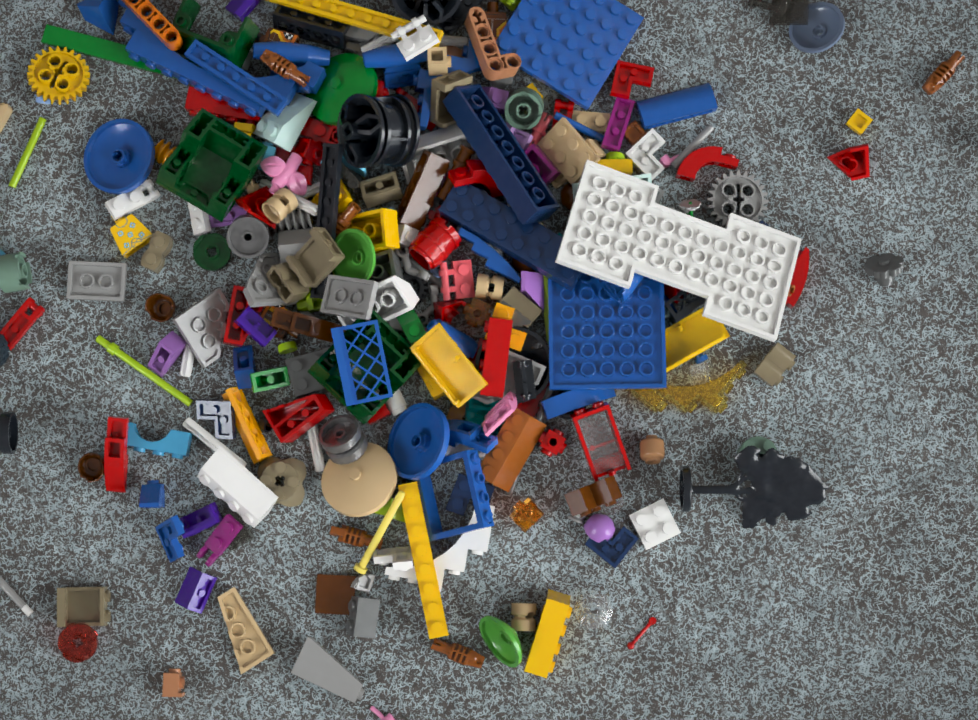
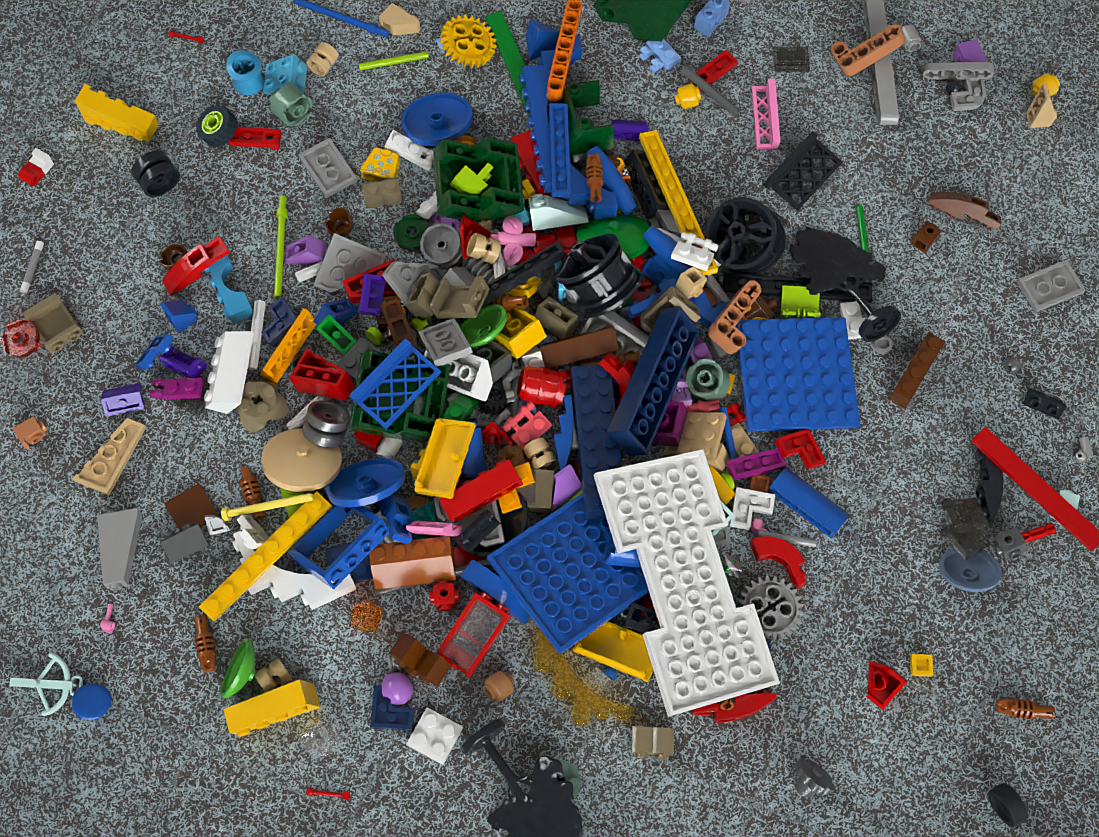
camera: 55 degrees right, 15 degrees down
(210, 176) = (469, 183): none -> lime brick

